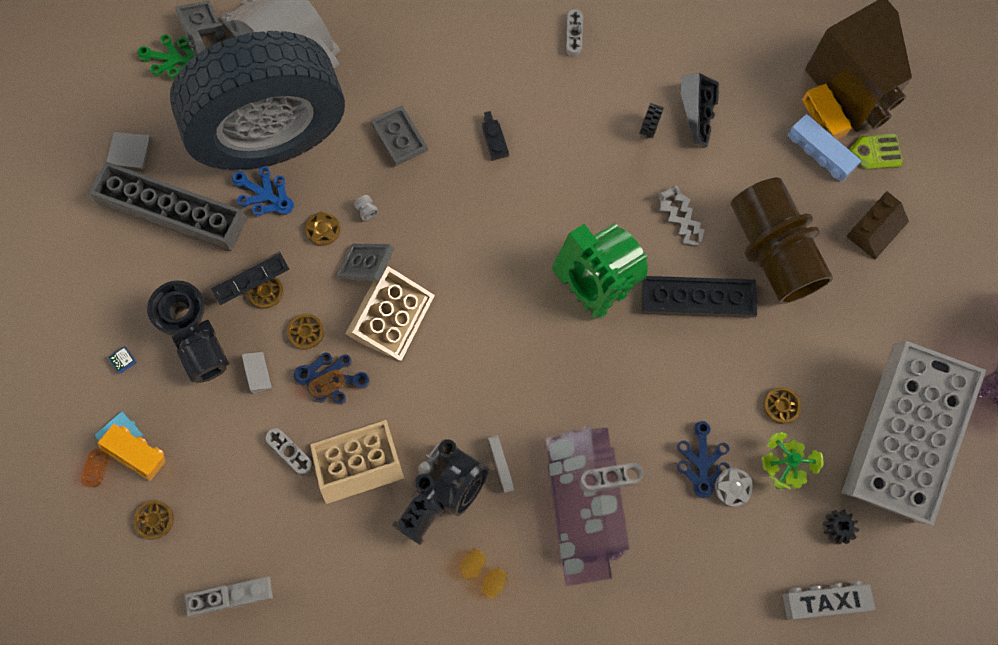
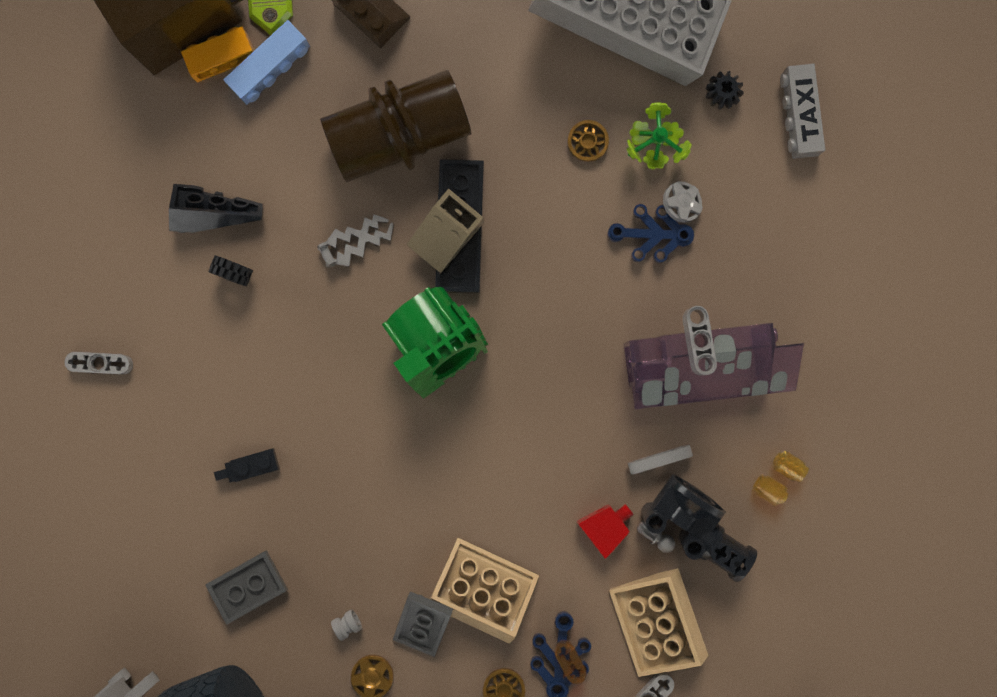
camera: 85 degrees left, 15 degrees up
(441, 415) = (606, 527): none -> red torso
(695, 280) = (445, 231): none -> dark tan slope

